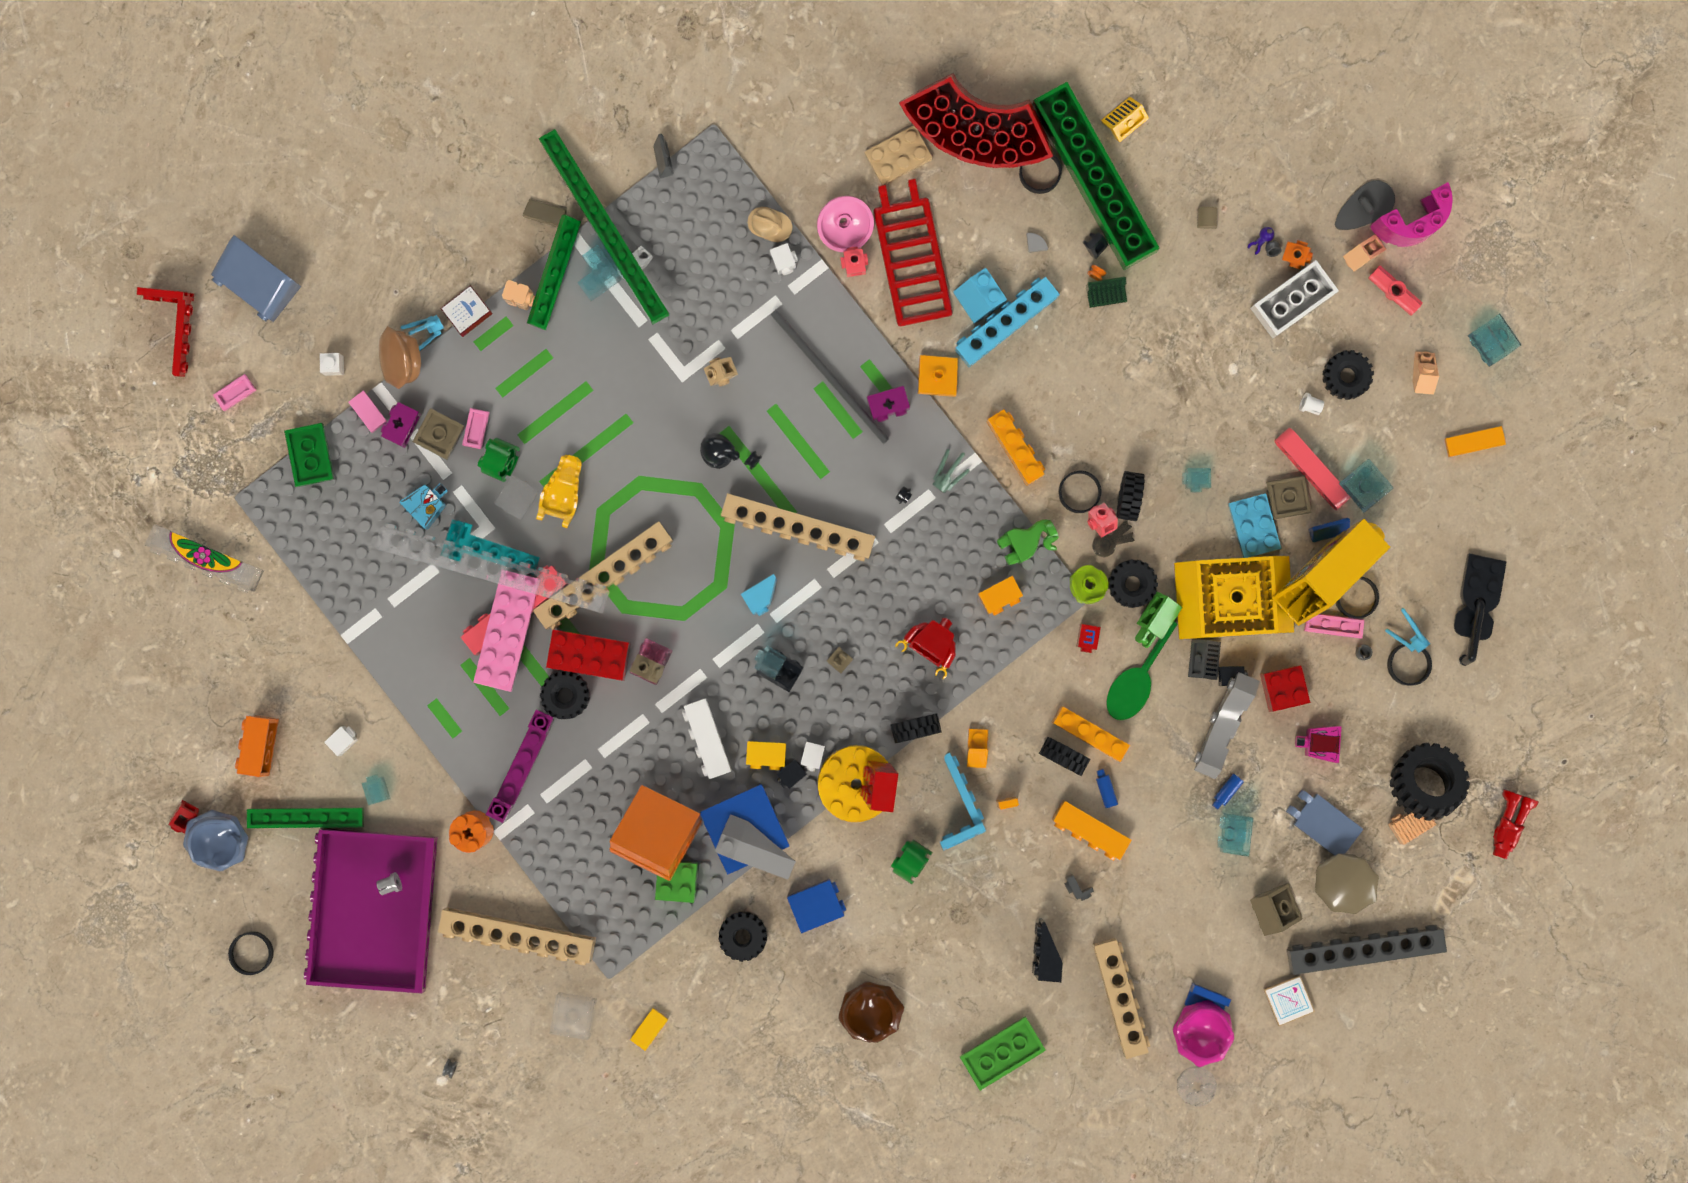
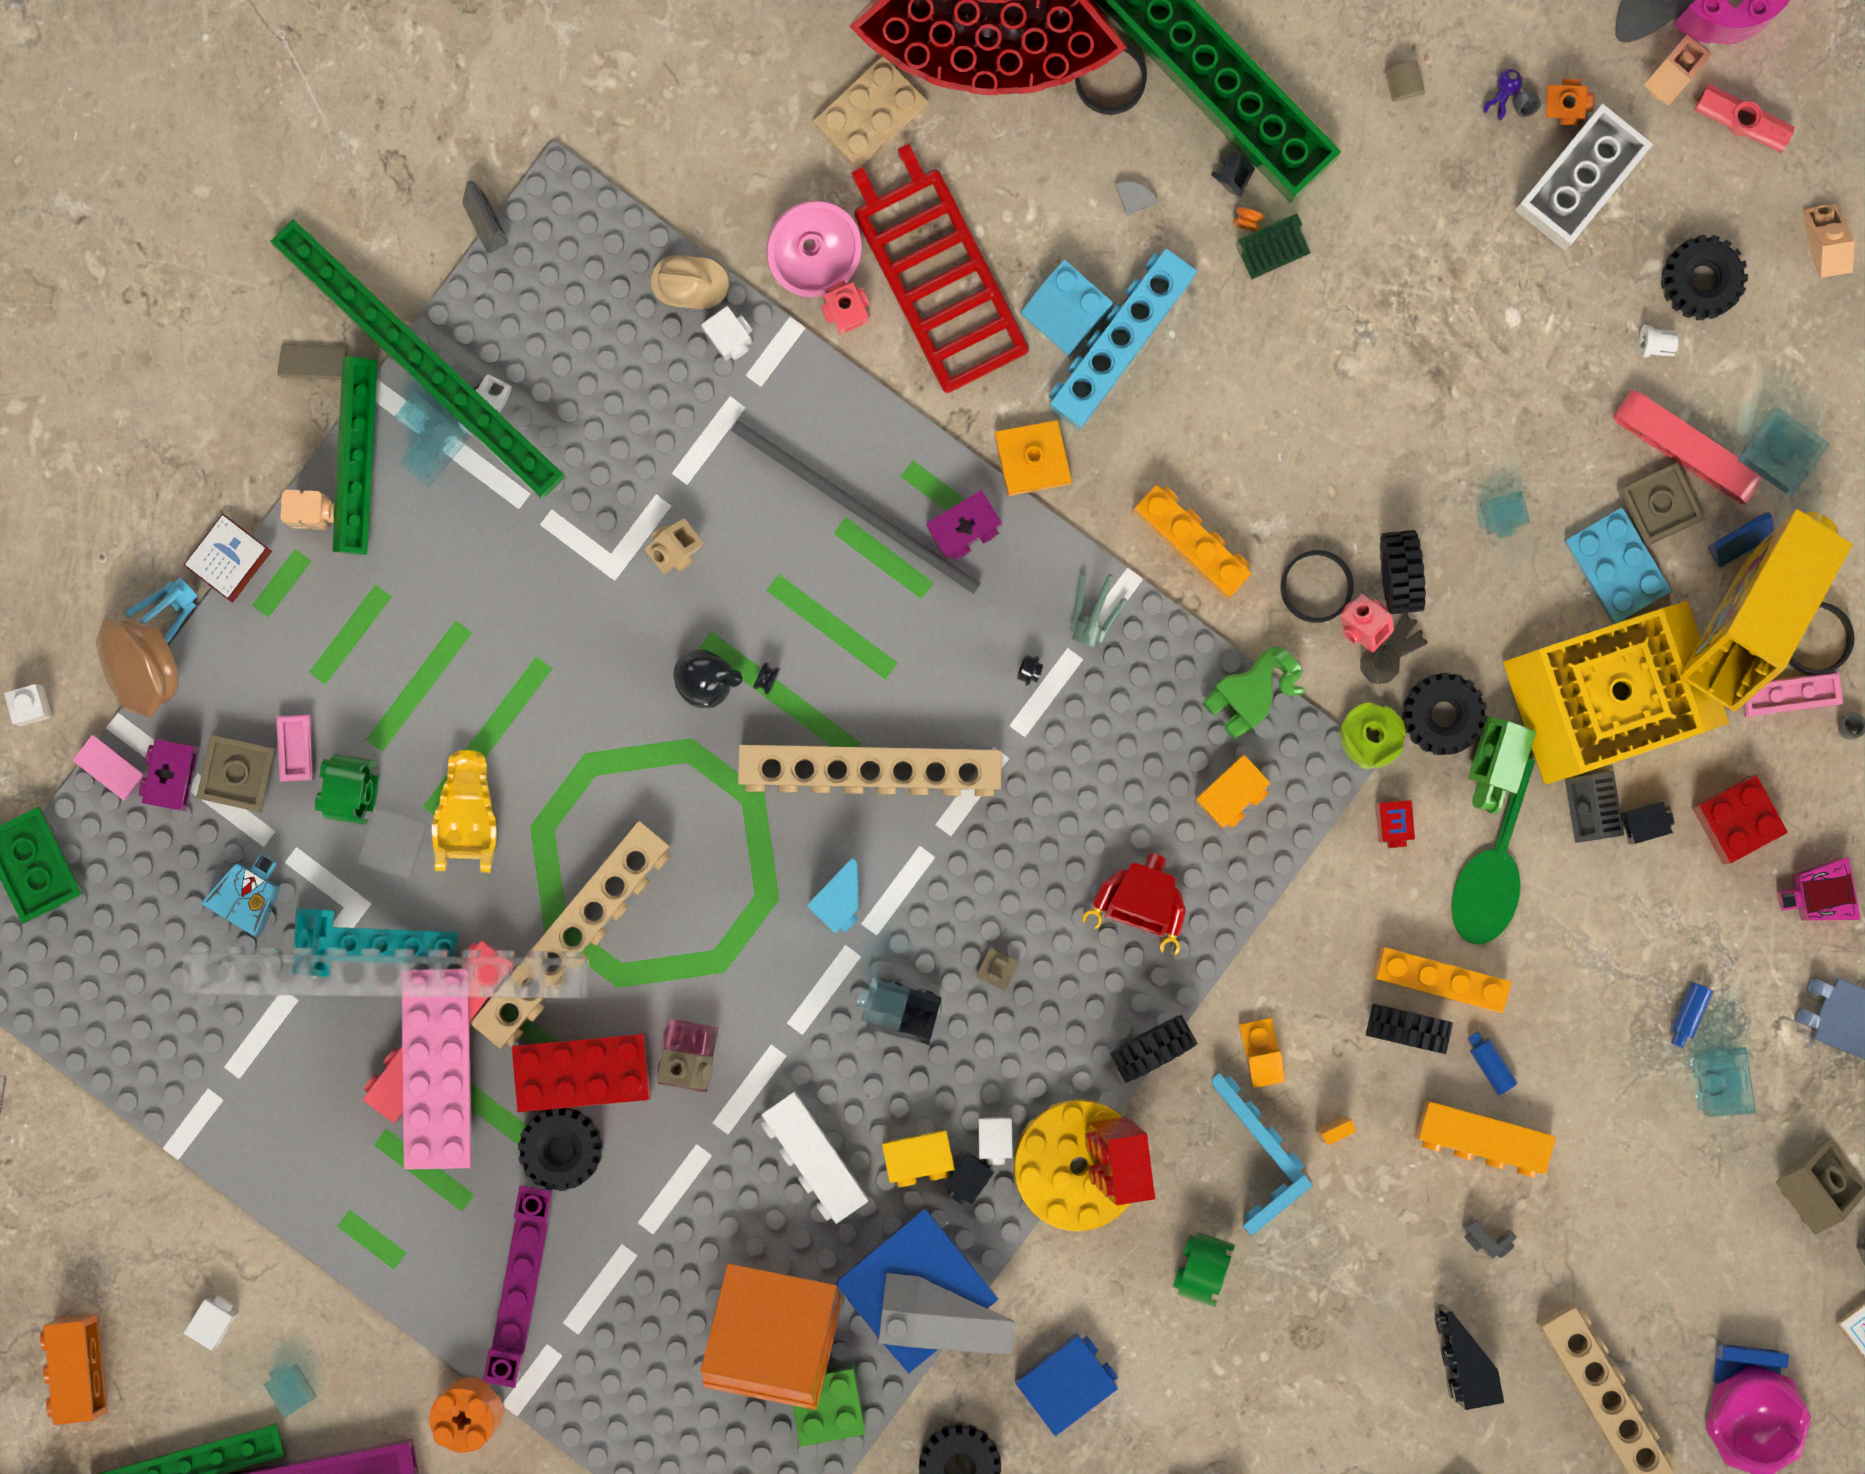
camera: 20 degrees left, 0 degrees up
(1225, 724) = (1657, 905): light grey brick -> none

